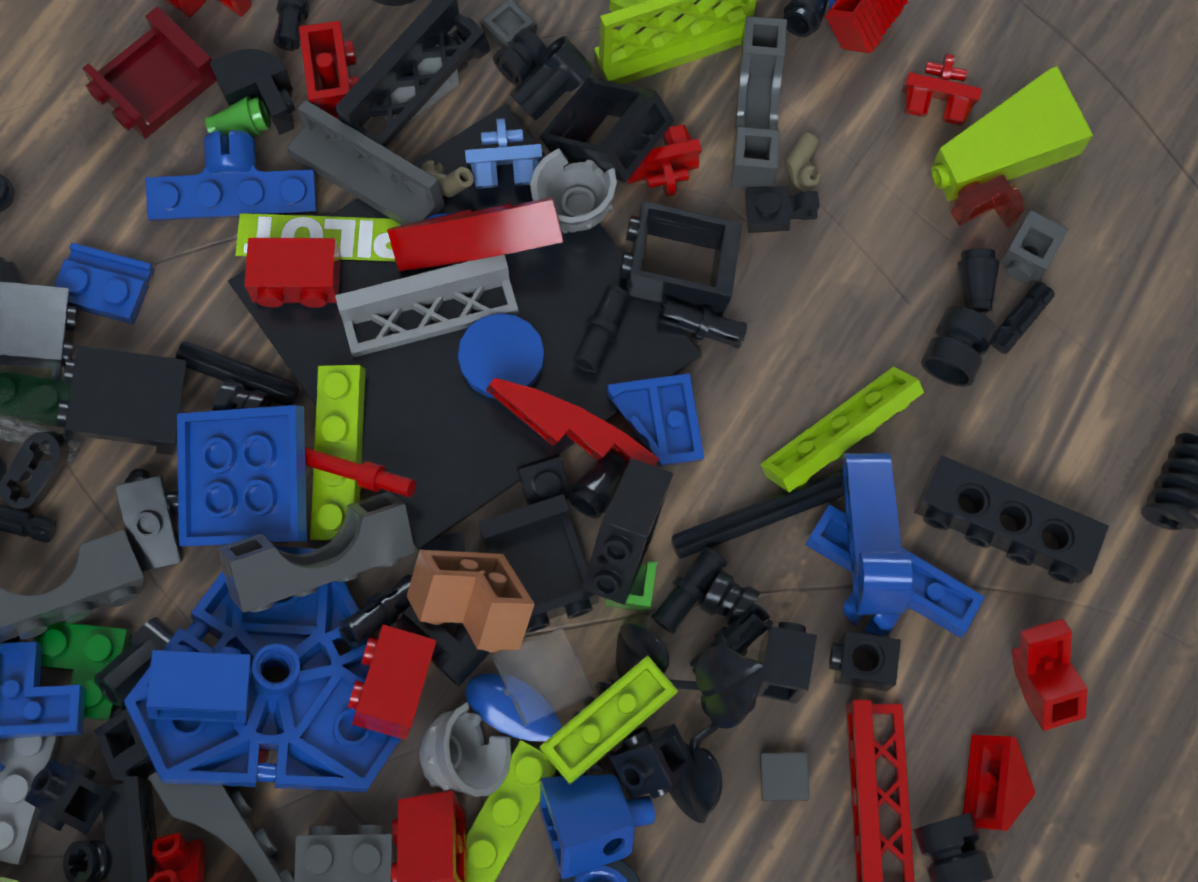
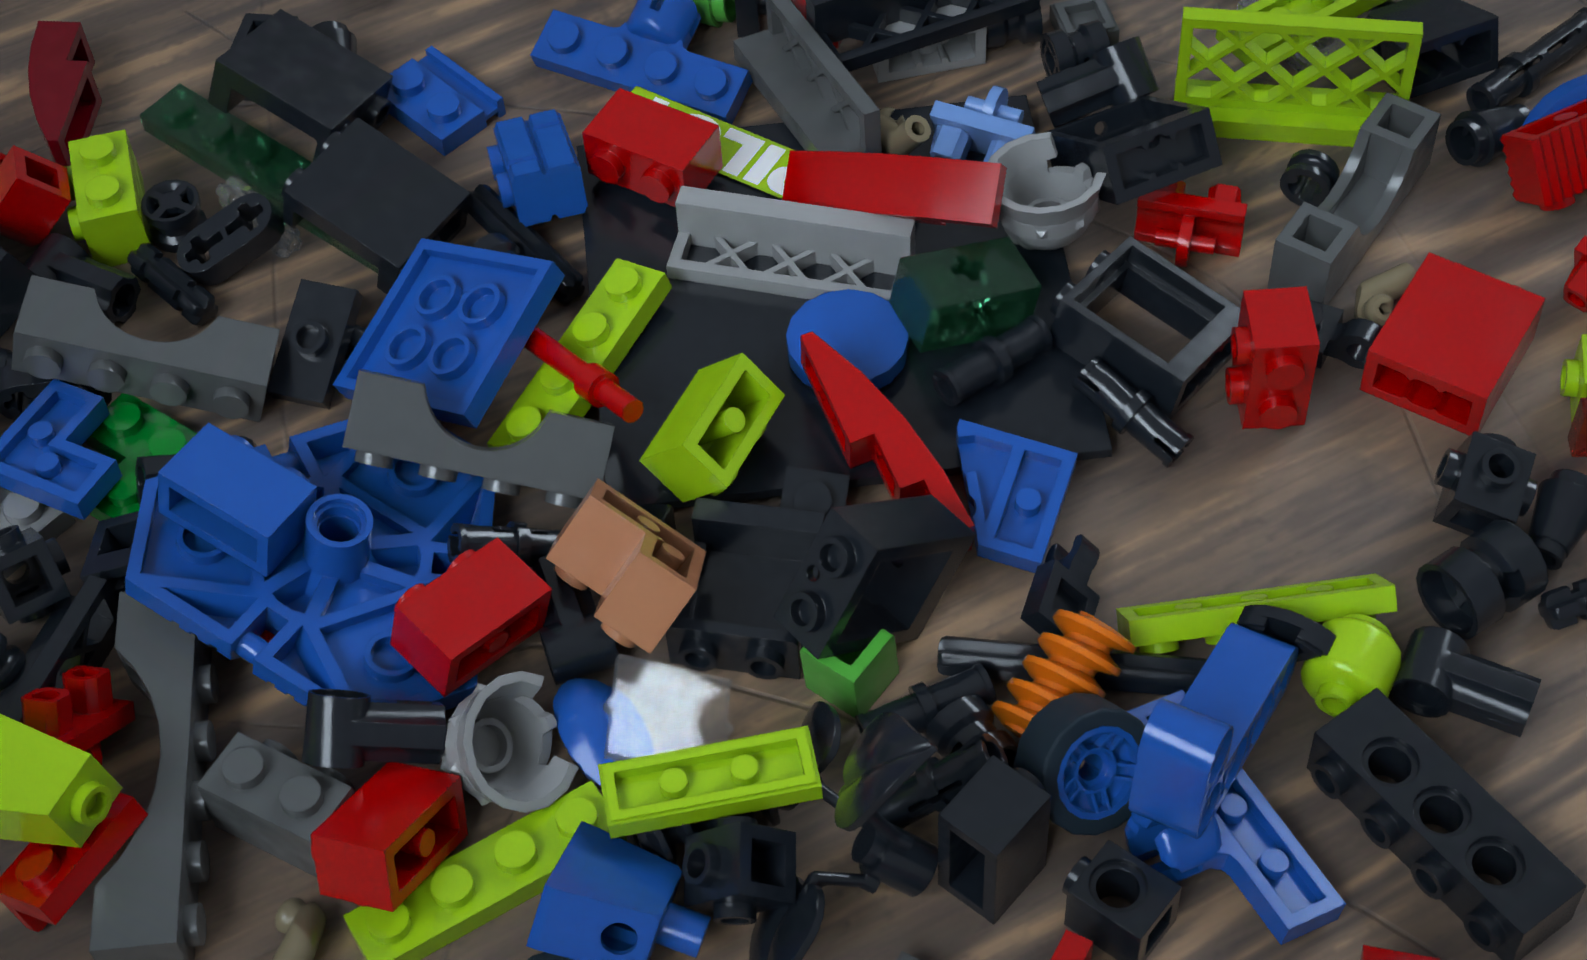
camera: 35 degrees right, 20 degrees down
(218, 315) = (537, 168): none -> blue brick
(369, 797) = (352, 728): none -> black piece
(461, 469) = (712, 428): none -> lime brick
(560, 290) = (963, 293): none -> brick
(718, 93) = (1310, 164): none -> black bush
(728, 476) = (1062, 585): none -> black plate
(766, 539) = (1068, 670): none -> orange piece
(772, 250) = (1273, 358): none -> red brick
(806, 586) = (1088, 731): none -> wheel
(863, 182) = (1451, 344): none -> red brick
(876, 443) = (1290, 627): none -> black tile
(915, 441) = (1357, 663): none -> lime head
(931, 280) = (1484, 483): none -> black brick
(967, 420) = (1444, 677): none -> black piece

